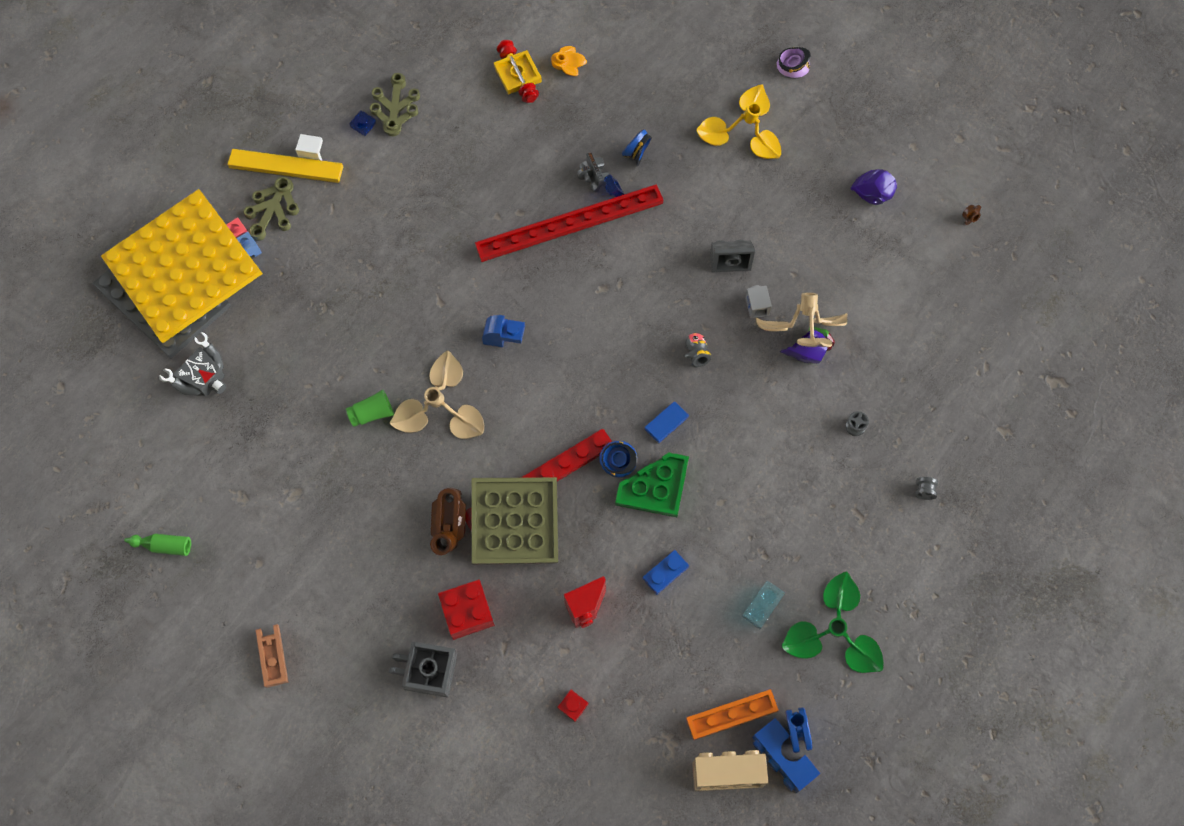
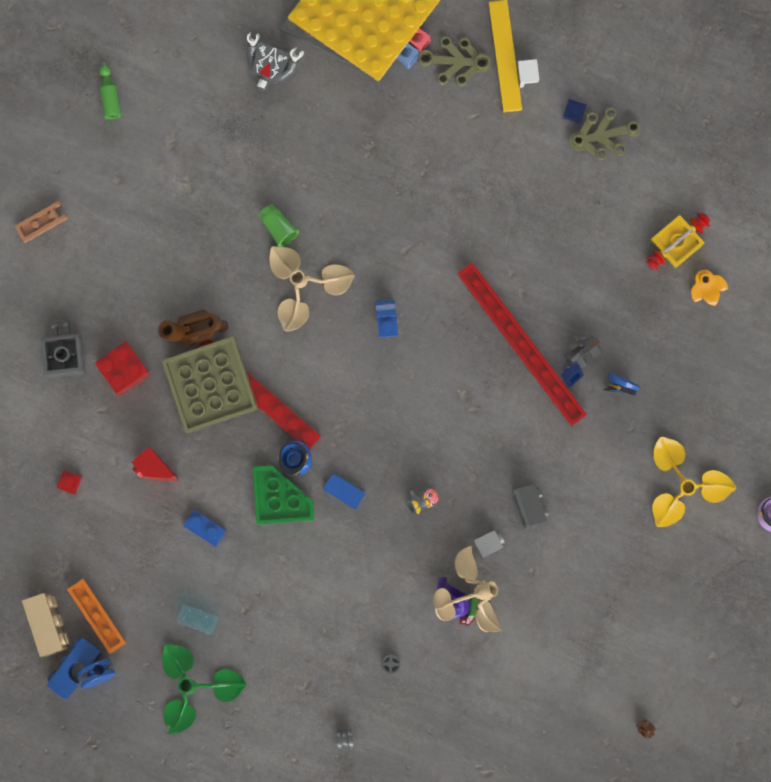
camera: 75 degrees right, 15 degrees up
(875, 186) = (649, 627): dark purple helmet -> none

